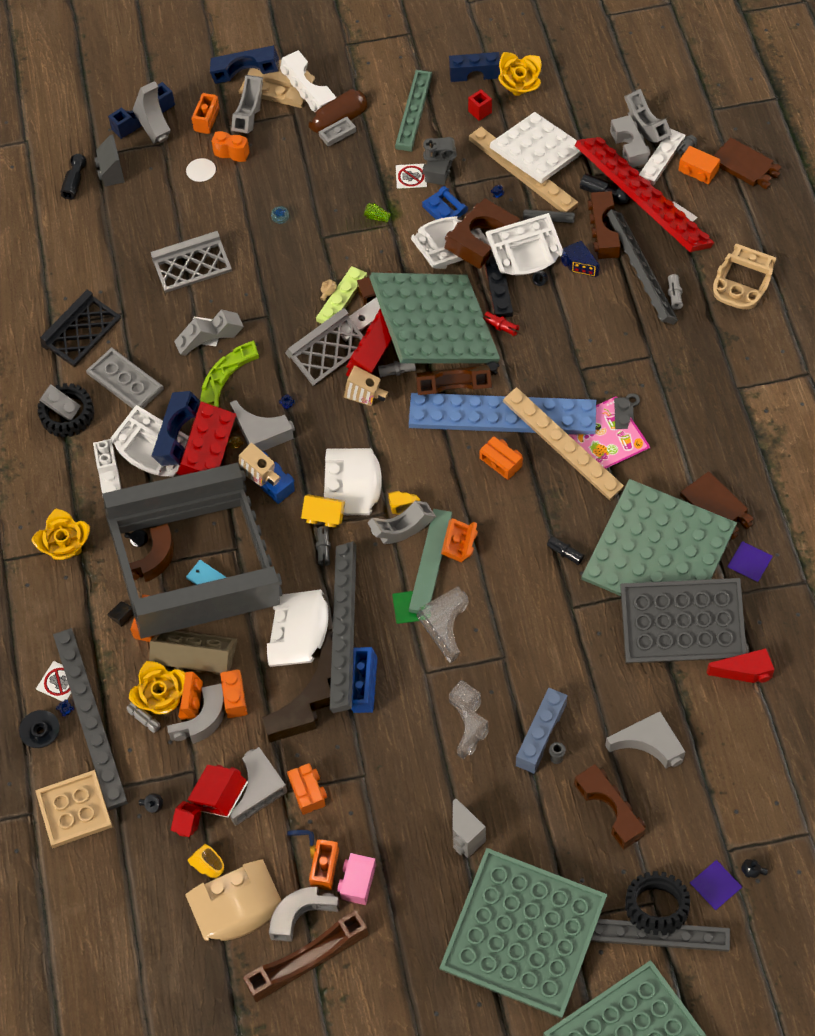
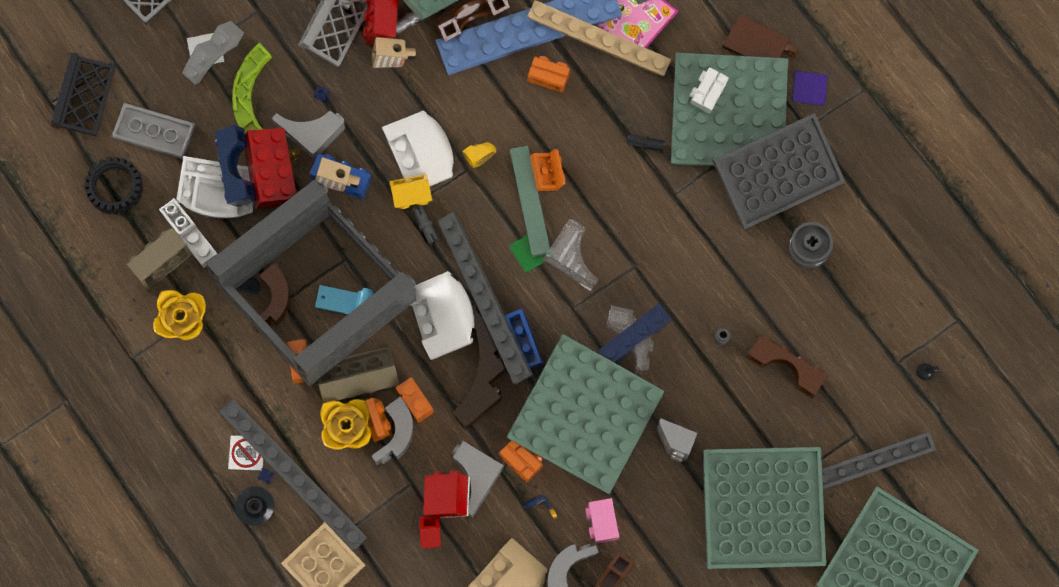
camera: 30 degrees left, 15 degrees up
(60, 403) = (105, 181): light grey plate -> none
(69, 482) = (159, 258): none -> dark tan brick
(121, 613) = (271, 365): black slope -> none
(143, 717) = (343, 455): light grey axle -> none
(152, 803) = (391, 529): black piece -> none
(207, 861) = (465, 561): yellow rock -> none
(324, 864) = (570, 521): orange brick -> none
(387, 769) = (585, 414): none -> sand green plate
(406, 524) = (490, 176): light grey arch -> none
(485, 709) = (636, 333): none -> dark blue arch
(540, 730) = (700, 321): sand blue arch -> none
(644, 520) = (709, 90): none -> white brick
(651, 736) = (797, 288): light grey arch -> none
(661, 883) = (863, 415): black tyre -> none
(684, 701) = (806, 235): none -> dark grey wheel
(716, 885) = (900, 397): dark purple sticker -> none
(746, 667) = (849, 192): red slope -> none

